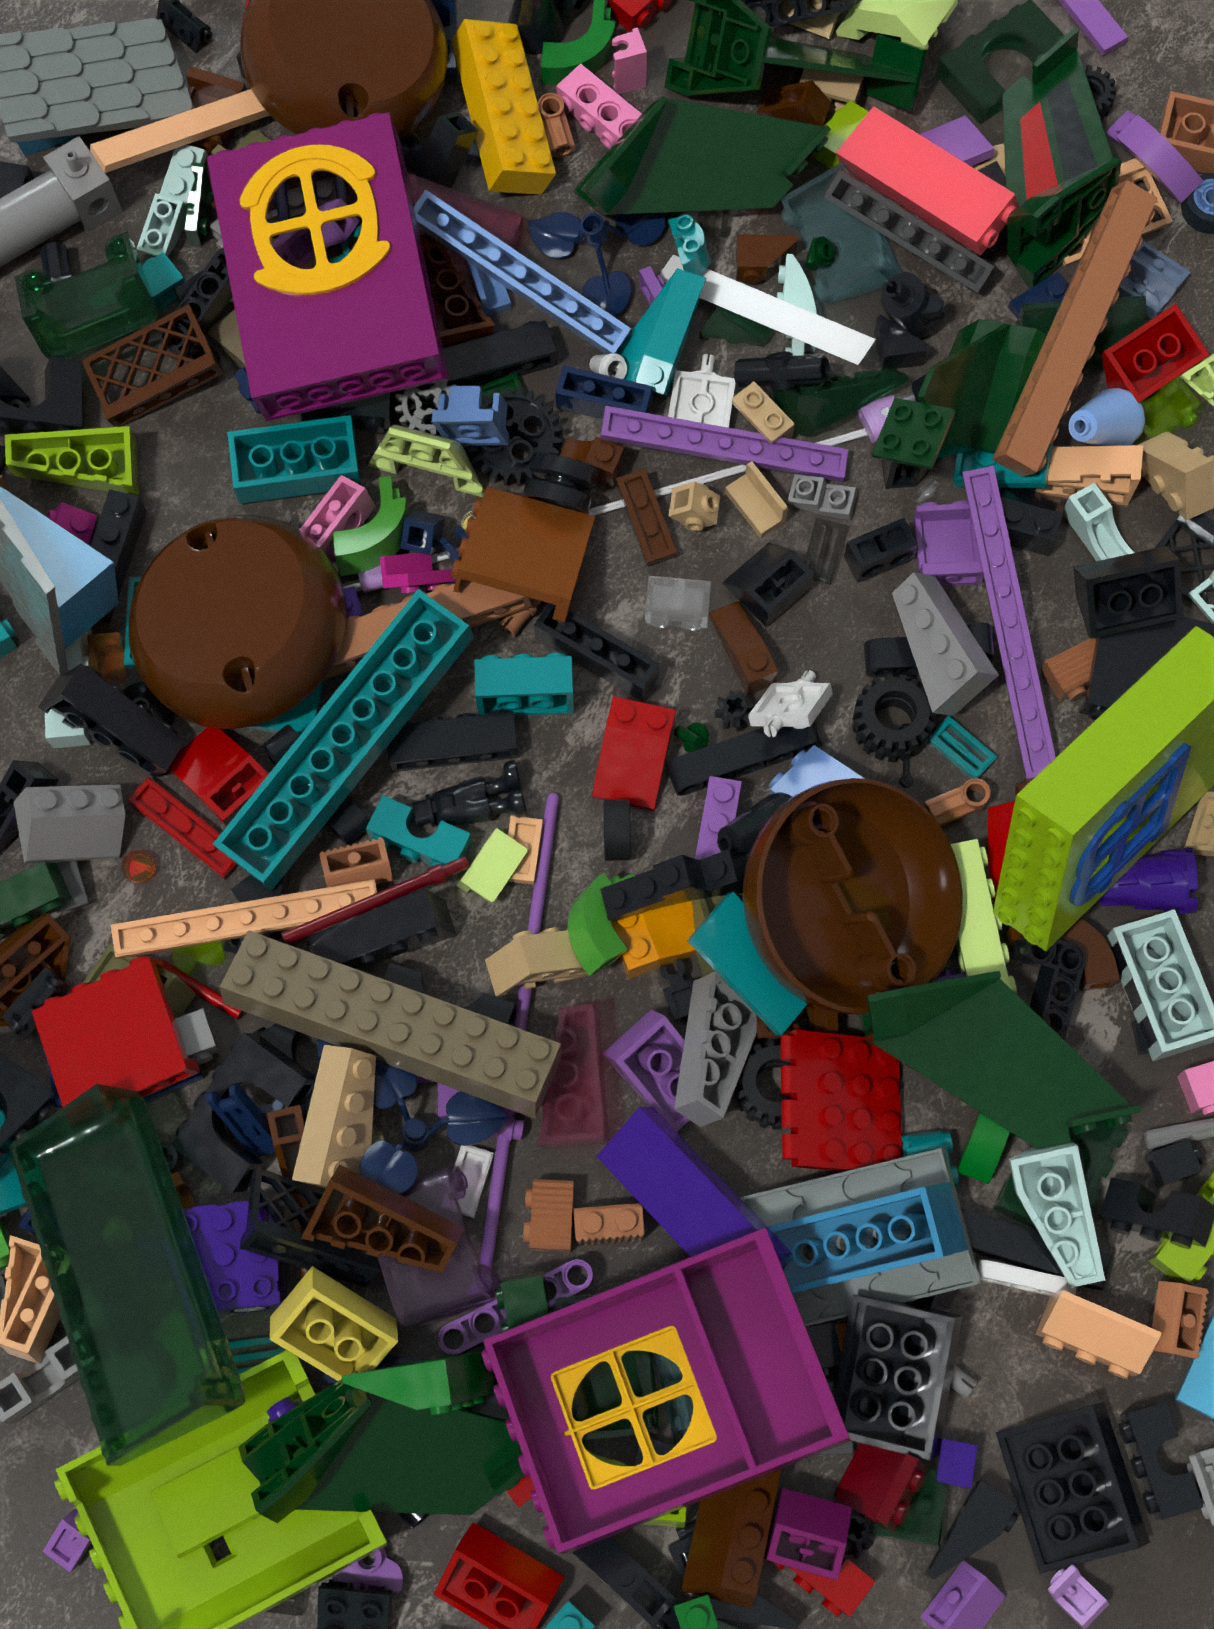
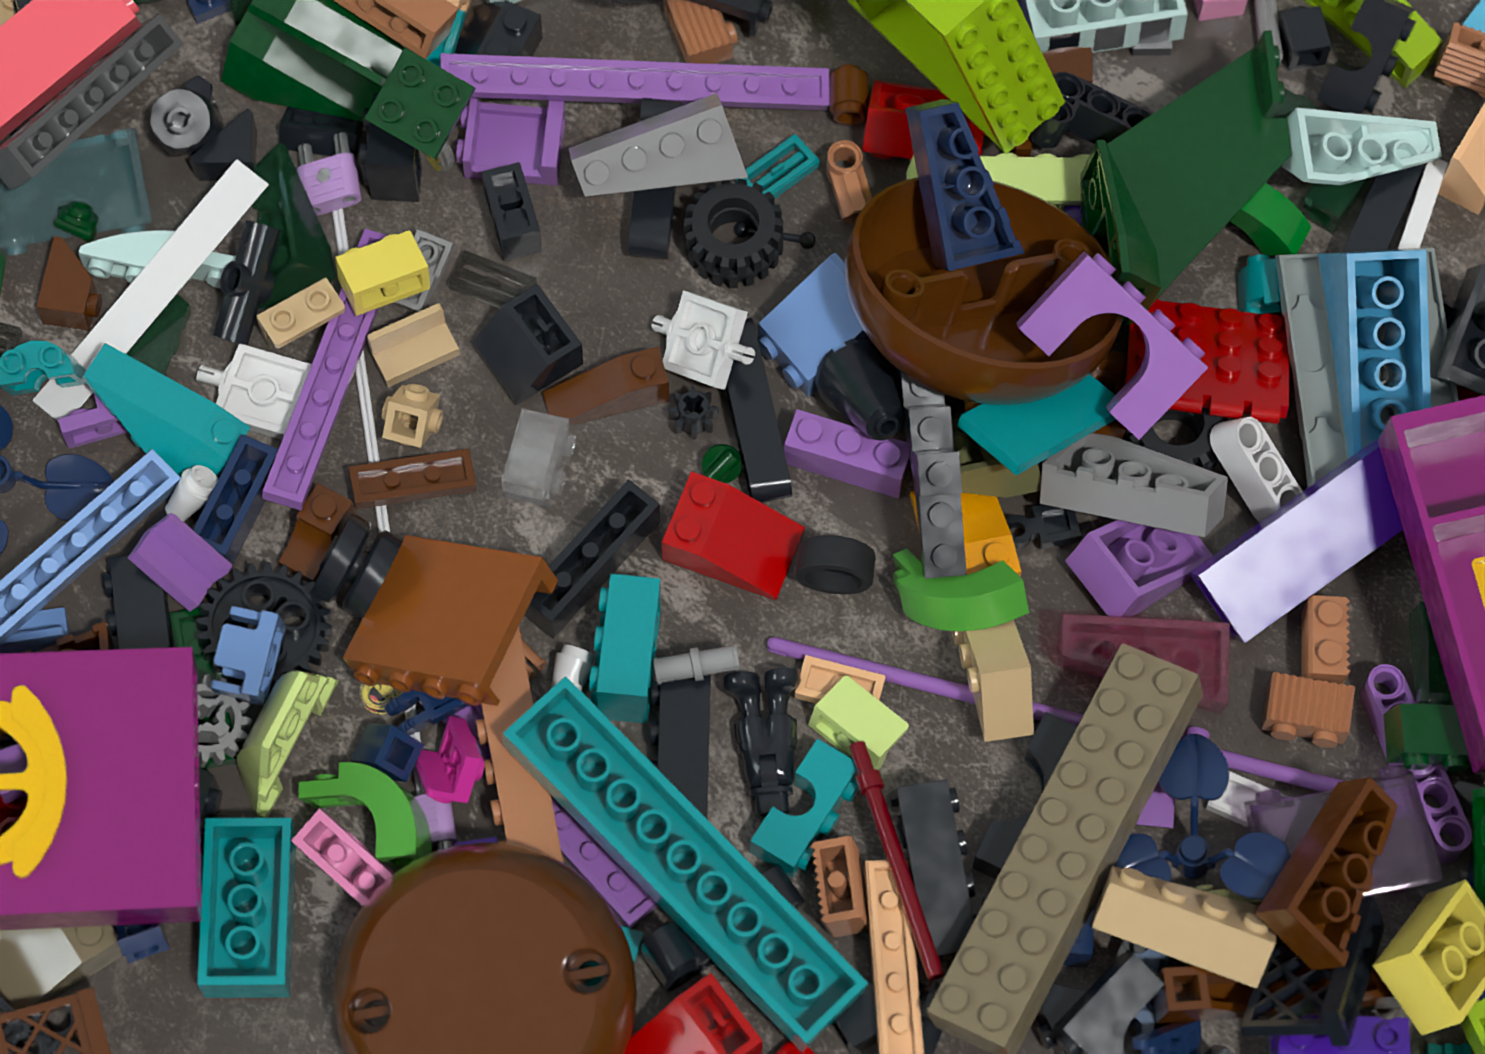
camera: 85 degrees left, 5 degrees down
(503, 648) = (574, 664): none -> white cone
(514, 733) = (696, 664): none -> light grey pin
(545, 363) = (179, 561): none -> medium lavender panel
(752, 1138) = (1254, 465): none -> white beam
(804, 461) = (382, 272): none -> light yellow brick
(850, 979) = (1167, 364): none -> medium lavender arch
(931, 867) = (956, 190): none -> dark blue wedge

